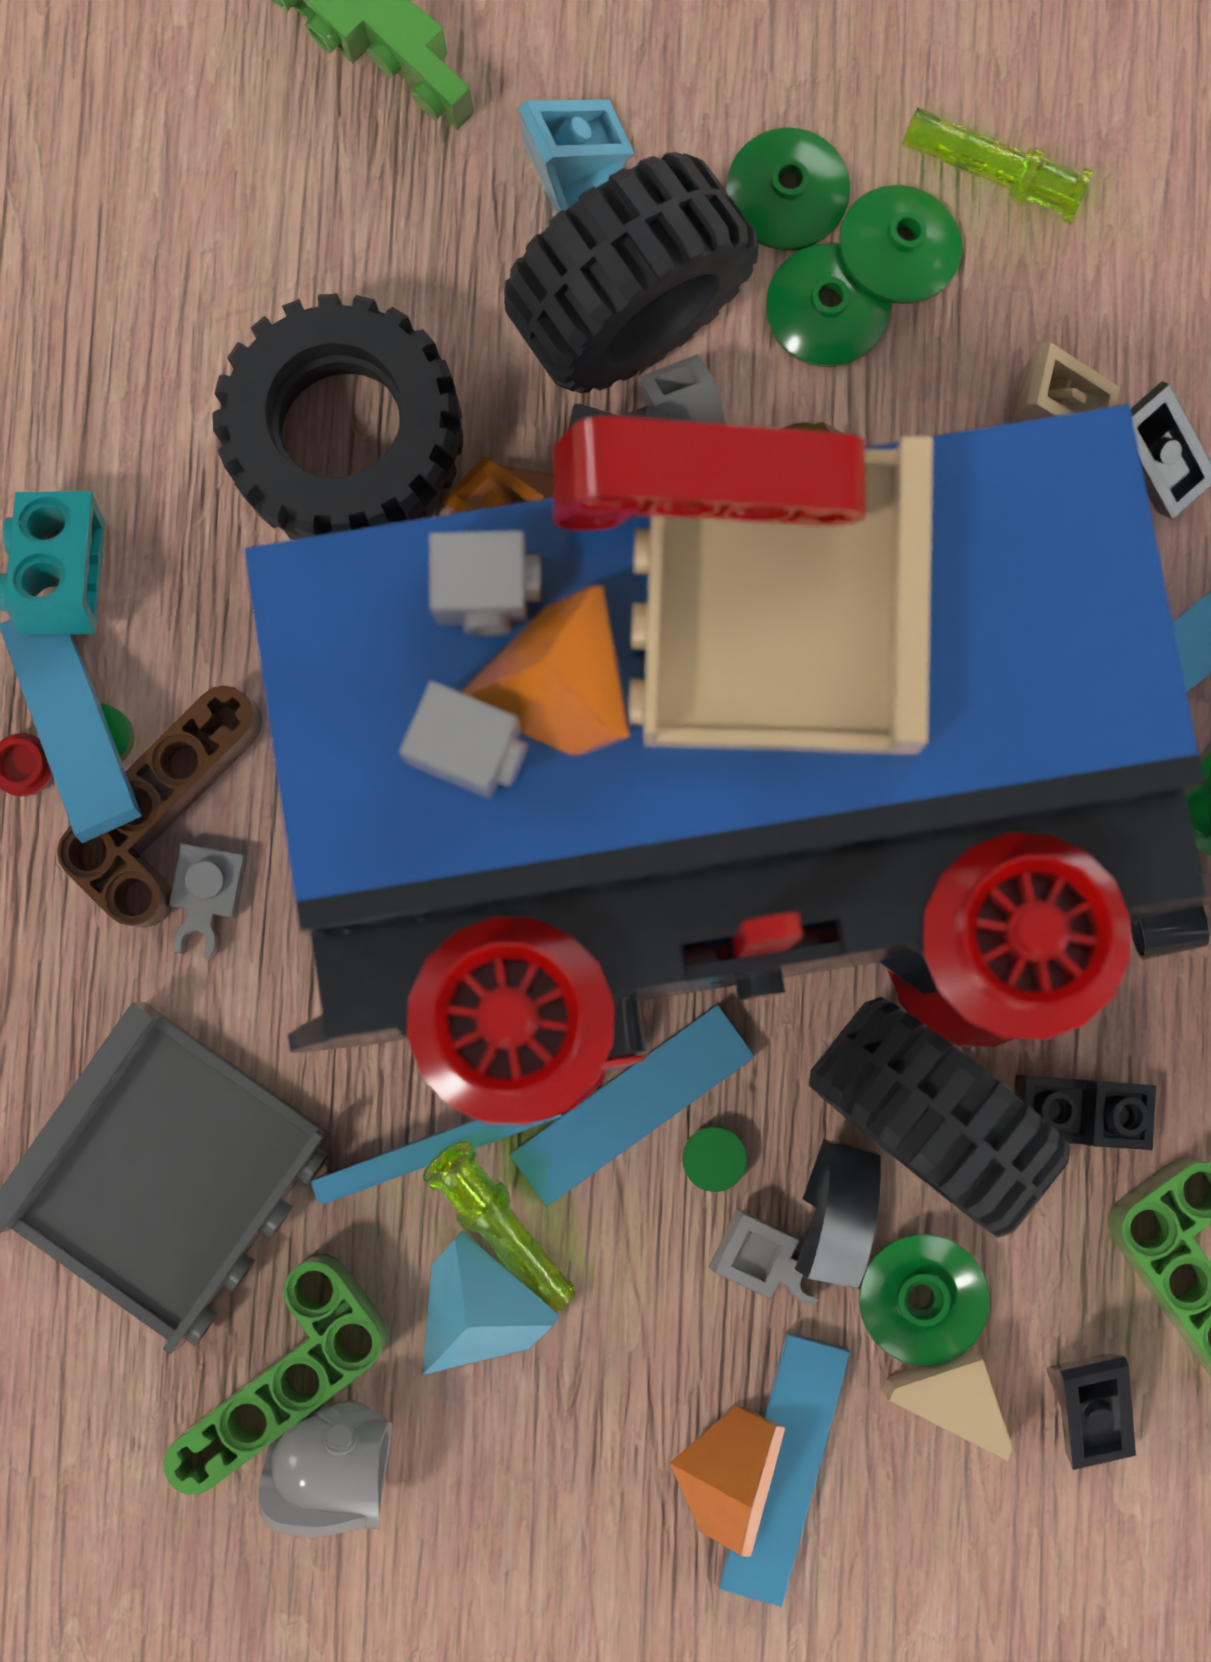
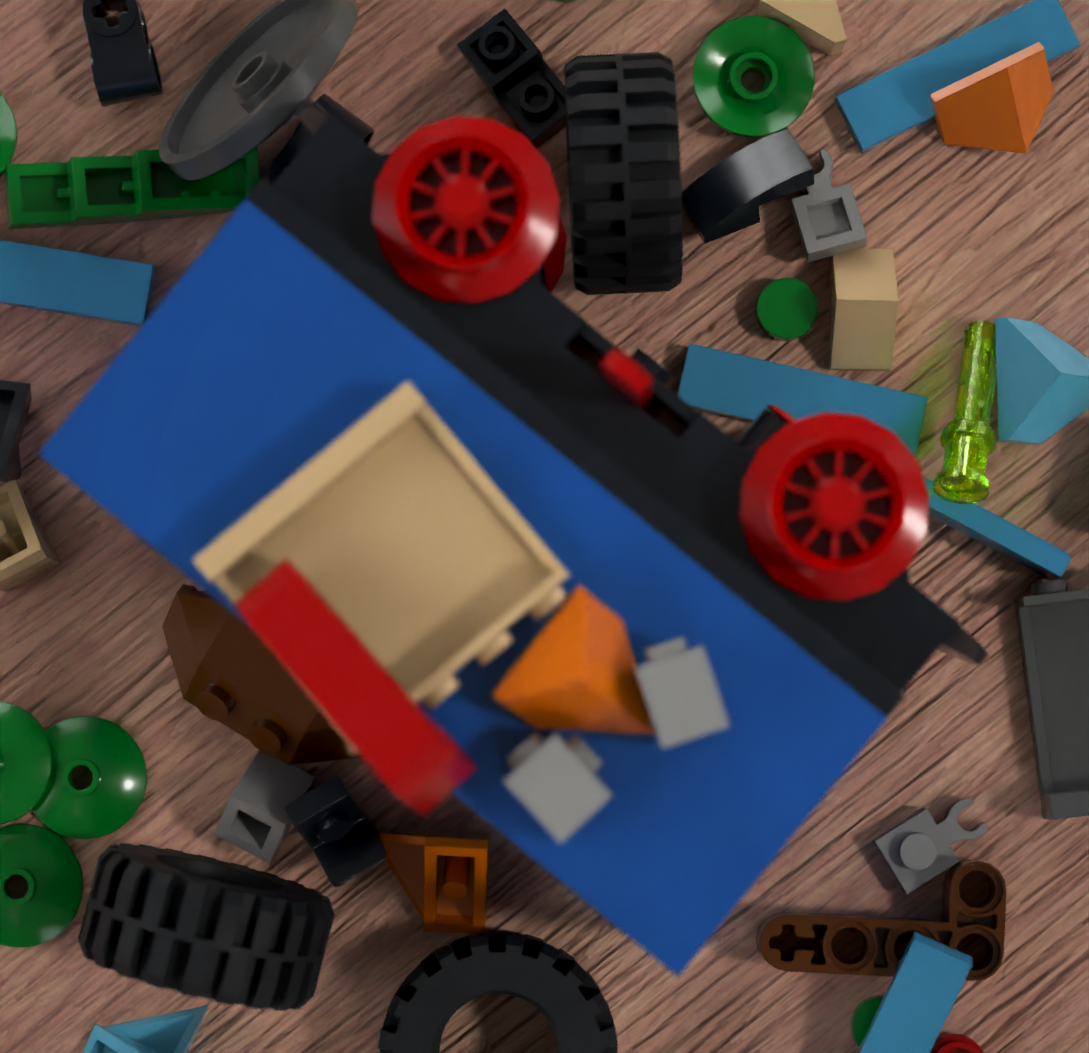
camera: 135 degrees left, 0 degrees up
(660, 1219) = (863, 310): none -> tan slope

